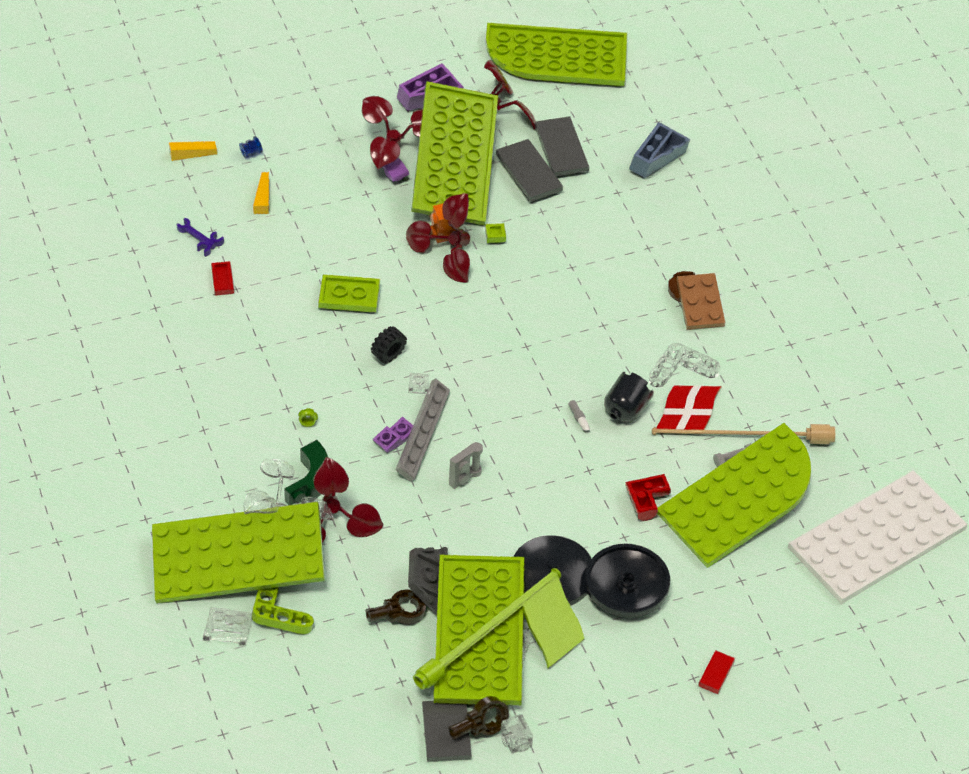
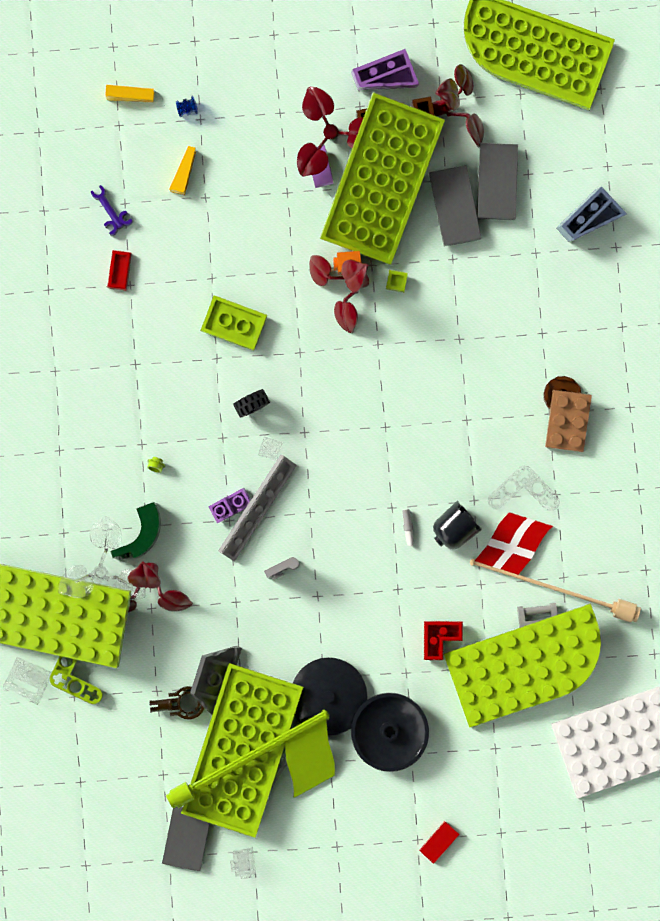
camera: 20 degrees right, 35 degrees up
(475, 719) = (217, 844): dark brown pin -> none

